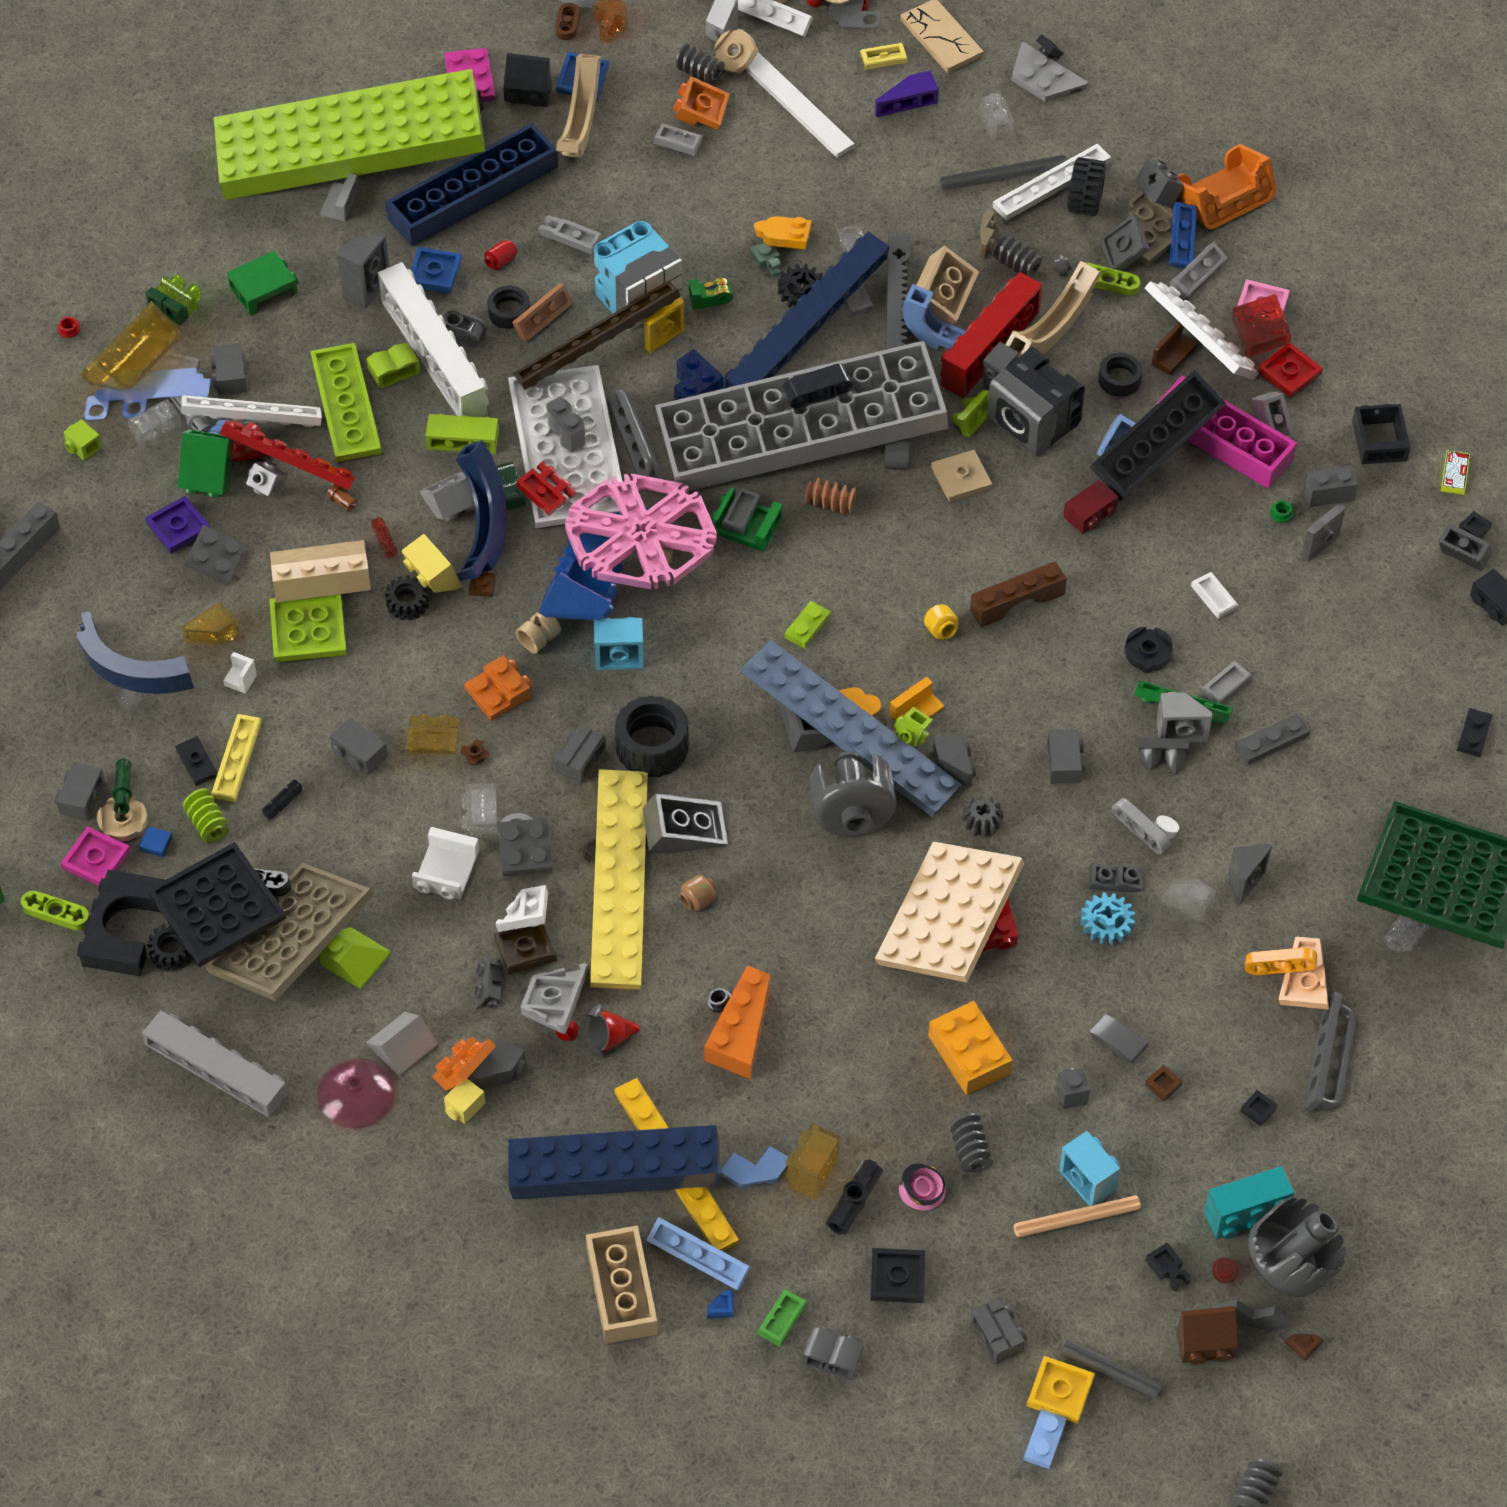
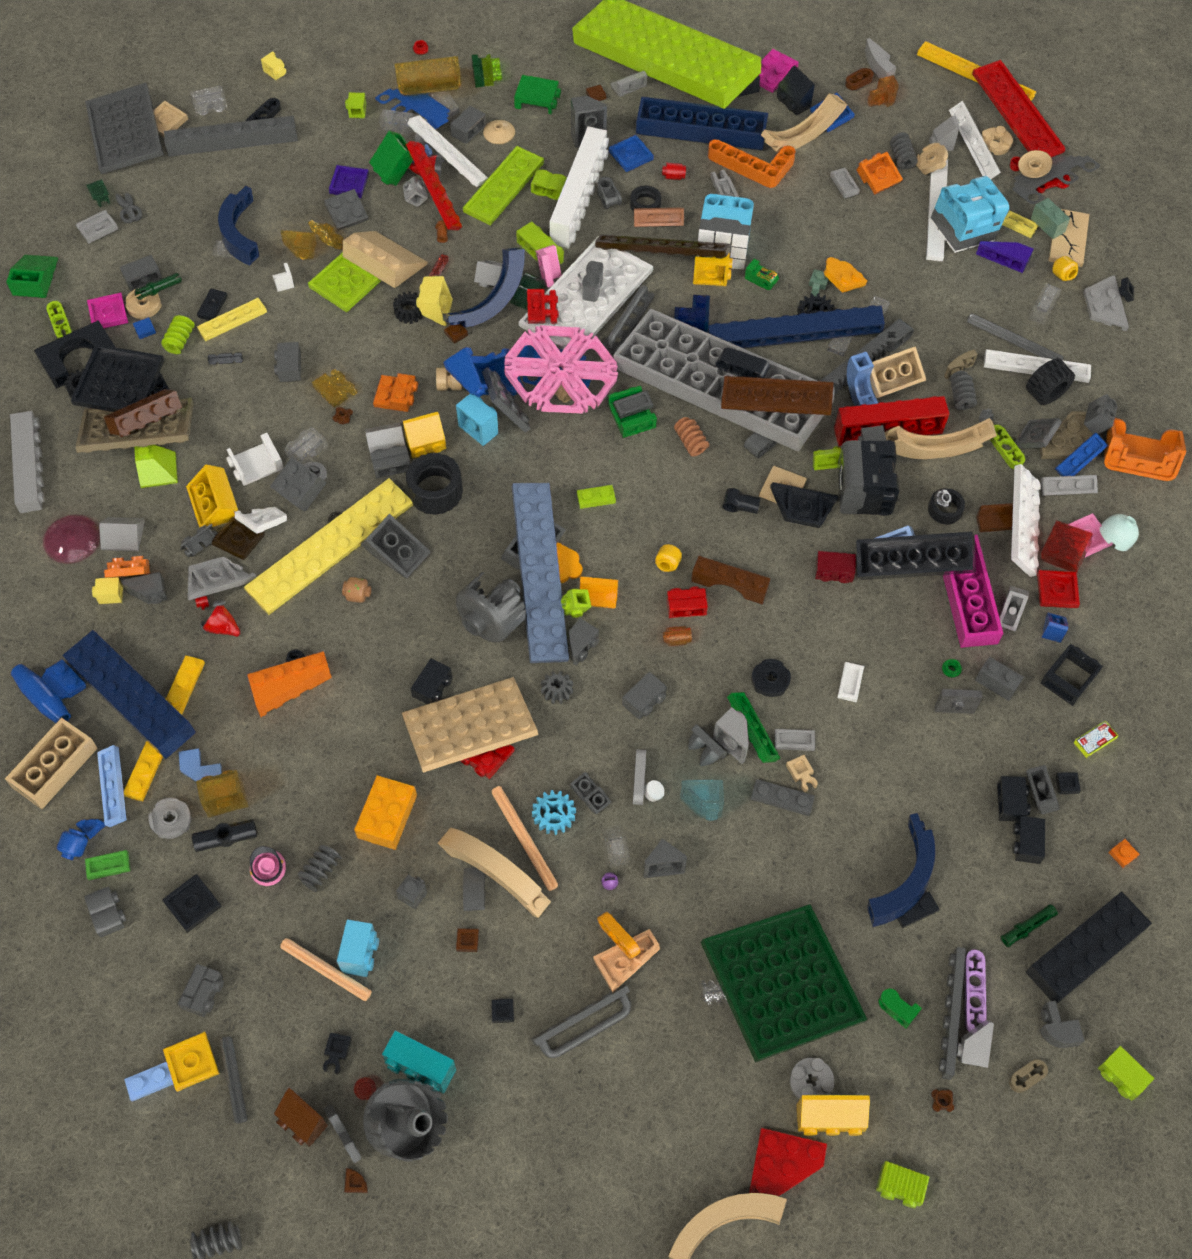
camera: 45 degrees right, 5 degrees up
(223, 591) = (327, 234): none -> clear yellow plate
(269, 358) = (499, 131): none -> tan dish
(295, 906) = (143, 412): none -> reddish brown brick
(319, 235) = (596, 92): none -> reddish brown tile
(450, 934) = (211, 496): none -> yellow slope
(500, 444) = (548, 264): none -> bright pink panel
(526, 1232) = (47, 691): none -> blue plate
(544, 738) = (384, 437): none -> light grey slope
(566, 193) = (750, 166): none -> orange beam
(587, 700) = (424, 435): none -> yellow slope
(633, 602) = (505, 400): none -> dark grey plate
(729, 1330) = (72, 844): none -> blue head
(788, 1244) = (170, 829): none -> light grey plate
(840, 79) = (969, 213): none -> medium azure piece
(870, 909) = (431, 682): none -> black brick
(883, 388) = (777, 395): none -> reddish brown plate
(912, 29) = (1050, 218): none -> sand green brick
(938, 522) = (735, 501): none -> black piece
(974, 68) = (1065, 268): none -> yellow head
(1001, 475) = (803, 505): none -> black wing
(1003, 646) = (686, 602): none -> red brick
(1030, 682) = (677, 636): none -> clear orange brick
(1107, 962) = (524, 838): none -> light nougat axle
(1114, 368) = (940, 501): none -> flat silver plate
(1116, 997) = (495, 865): none -> tan arch
(1218, 791) = (703, 797): none -> clear light blue slope
(1221, 933) = (609, 884): none -> medium lavender hinge
(1262, 702) = (801, 770): none -> tan plate
(1287, 275) = (1120, 531): none -> light aqua cylinder
(1324, 405) = (1055, 627): none -> blue slope
(1448, 576) = (1012, 798): none -> black brick
(1453, 698) = (901, 900): none -> dark blue arch

